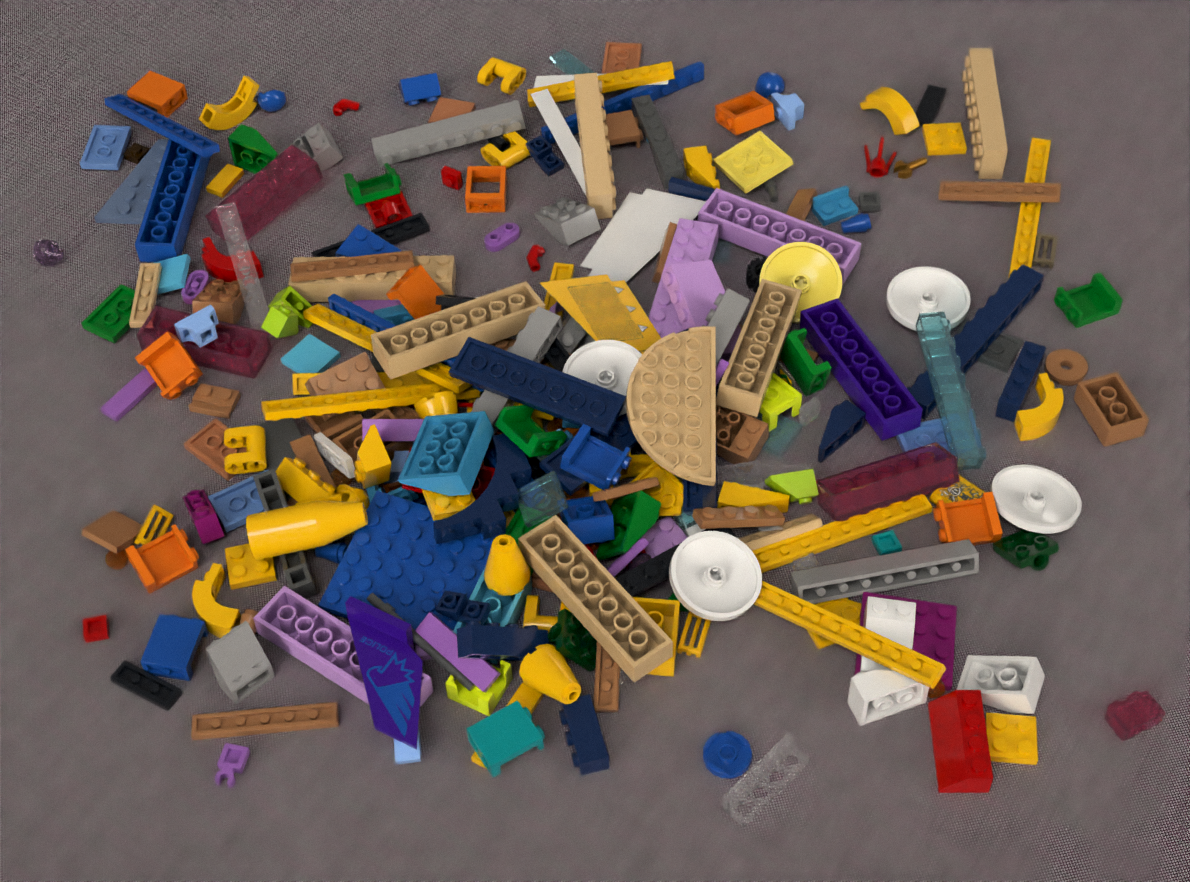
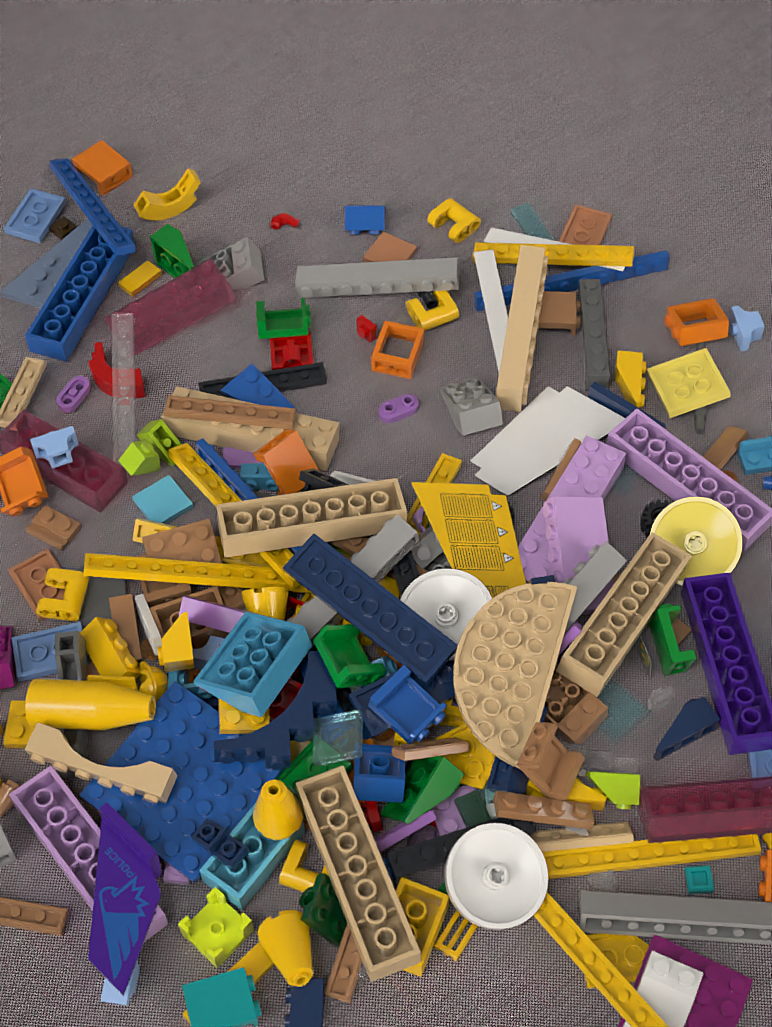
camera: 15 degrees right, 5 degrees up
(173, 273) = (55, 374): medium azure tile -> none
(224, 298) = (90, 418): medium nougat slope -> none
(271, 100) = (212, 199): blue hair -> none
(333, 552) = (116, 735): blue cone -> none
(380, 573) = (146, 779): none -> tan arch
(423, 644) = (143, 826): dark grey bar -> none
(445, 642) = (200, 892): medium lavender tile -> none
(498, 642) = (245, 897): dark blue brick -> none
(535, 252) = (422, 439): red arm -> none
(543, 155) = (469, 324): dark blue slope -> none
(674, 531) = (472, 808): none -> clear green tile
(731, 476) = (549, 763): none -> medium nougat panel
(769, 83) = (735, 292): blue hair -> none
(779, 398) = (629, 678): neon yellow panel -> none

